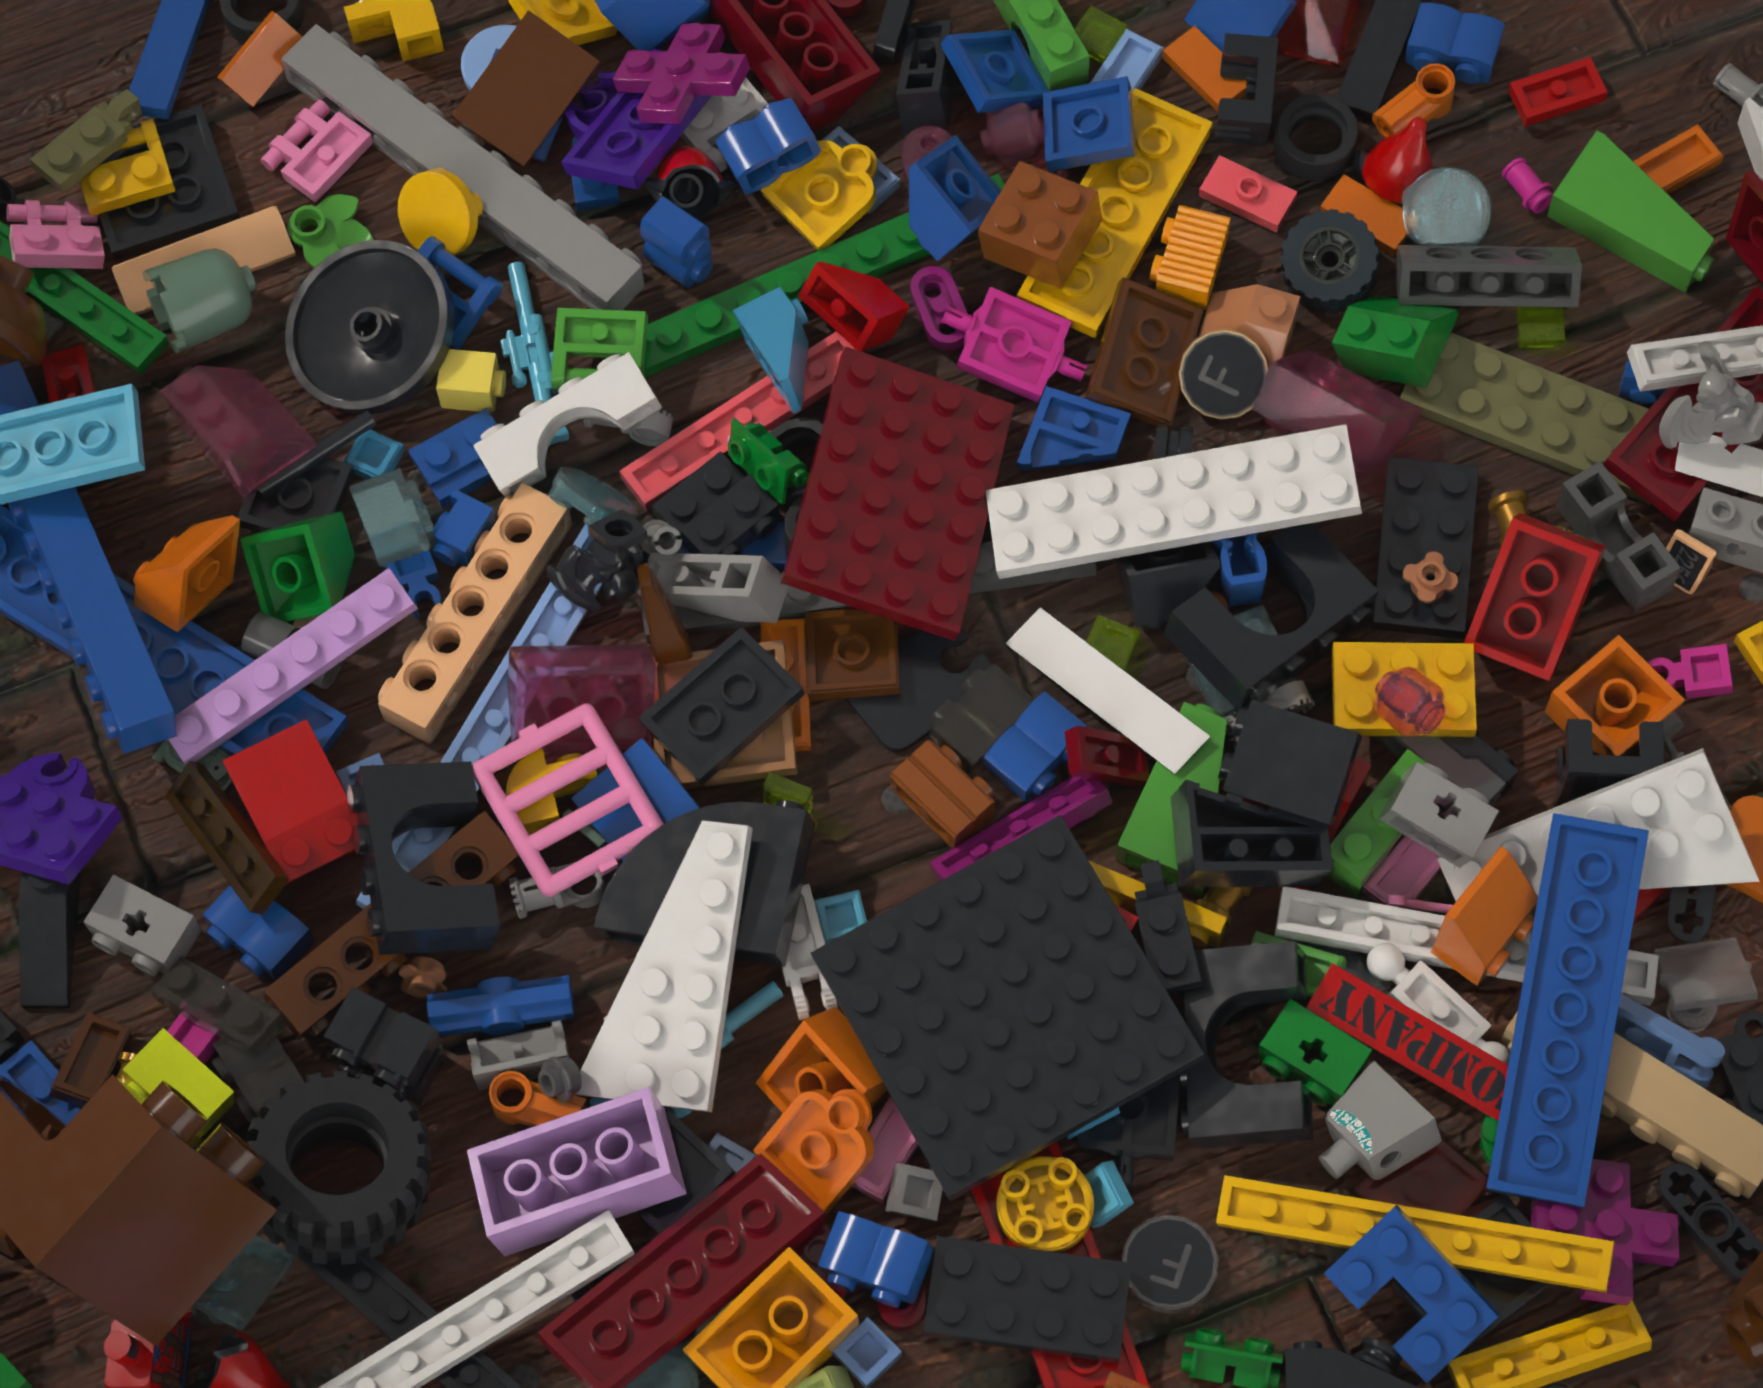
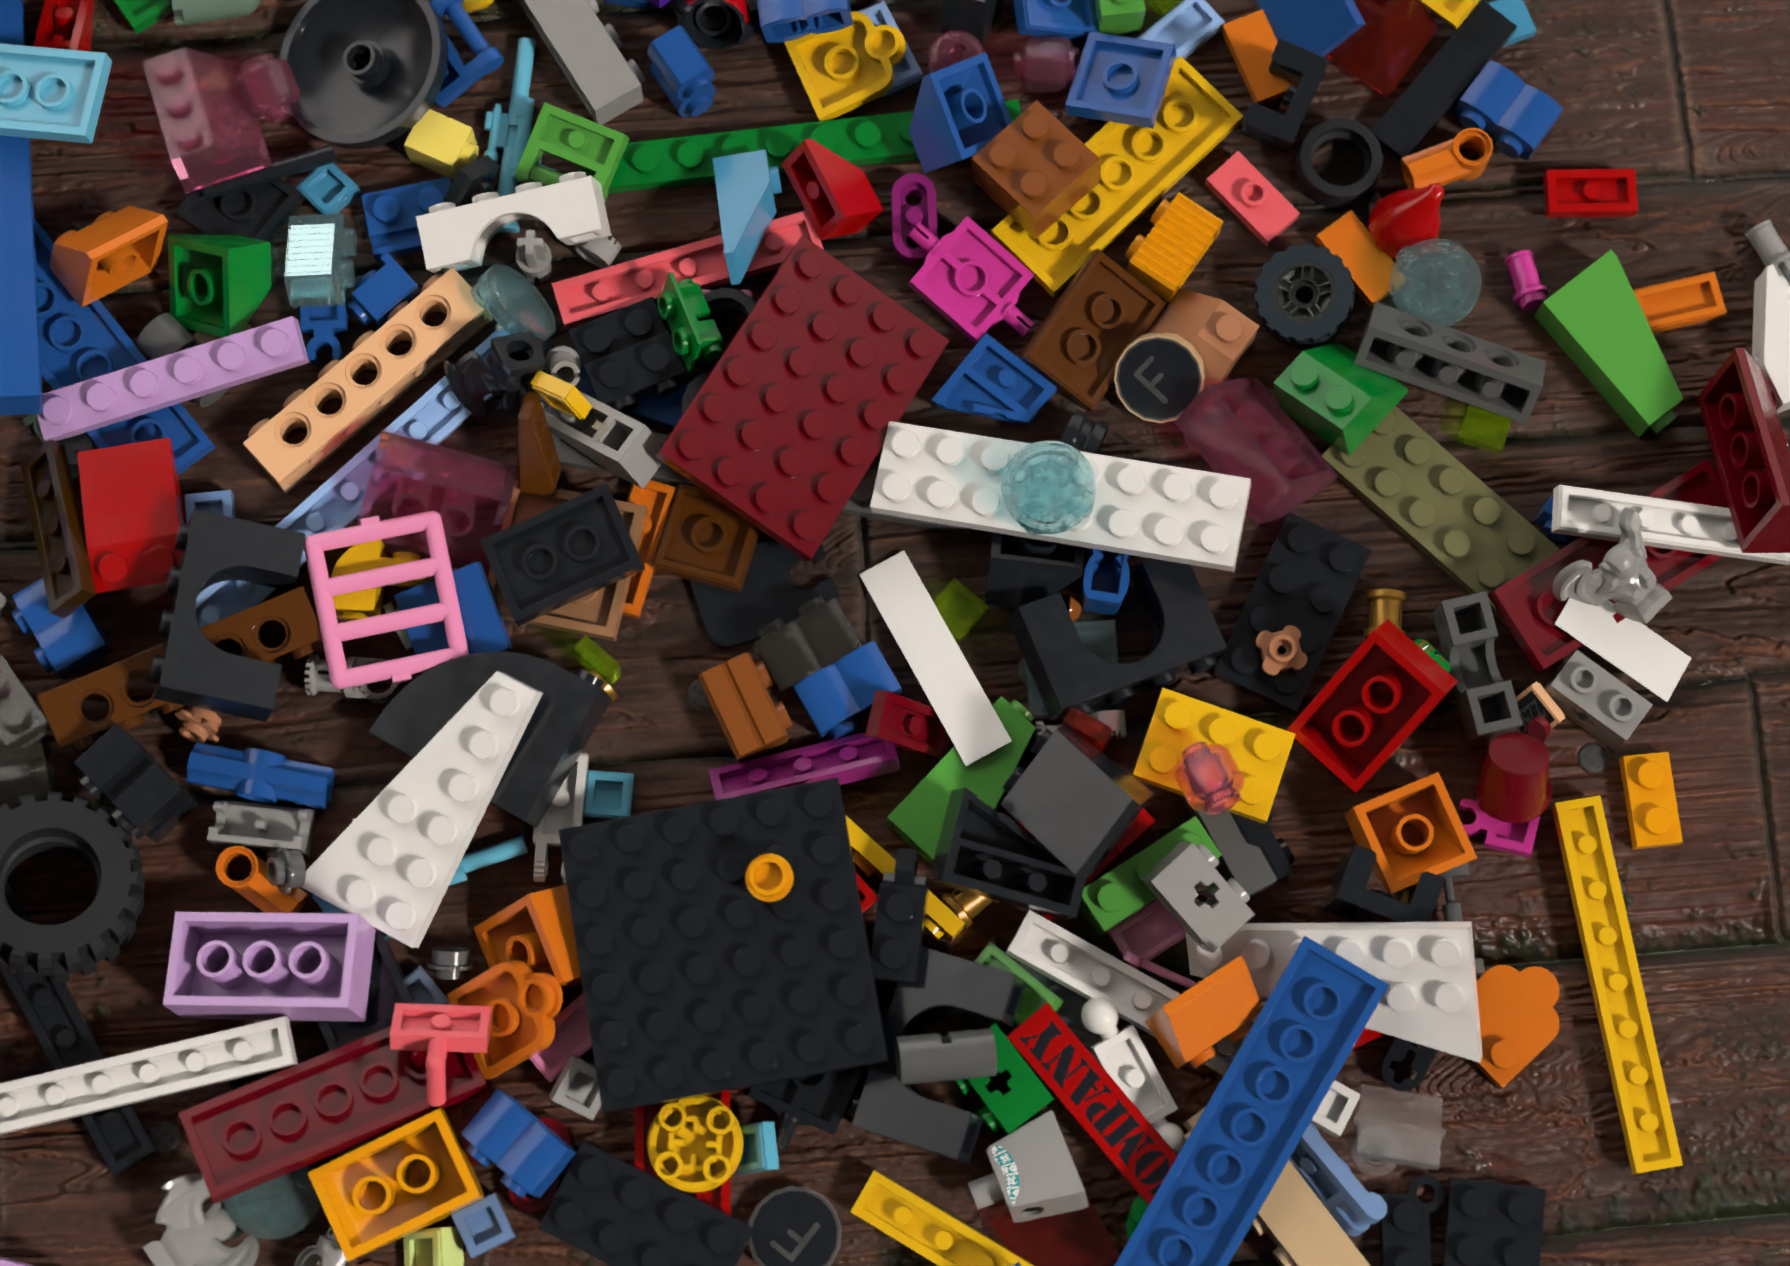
camera: 10 degrees right, 10 degrees up
(288, 378) = (267, 88): none -> clear pink head
(511, 400) = (472, 180): none -> black plate
(595, 449) = (534, 257): none -> light grey axle
(671, 557) = (561, 395): none -> yellow tile
(745, 1119) = (450, 962): none -> dark grey plate
(766, 1175) = (439, 1031): none -> coral plate
(1031, 922) = (769, 878): none -> light orange plate
(1161, 492) = (1048, 487): none -> clear light blue tile
(1254, 1042) = (945, 1058): none -> dark grey pin
(1279, 697) = (1088, 728): none -> clear red tile
(1691, 616) = (1516, 775): none -> dark red hat

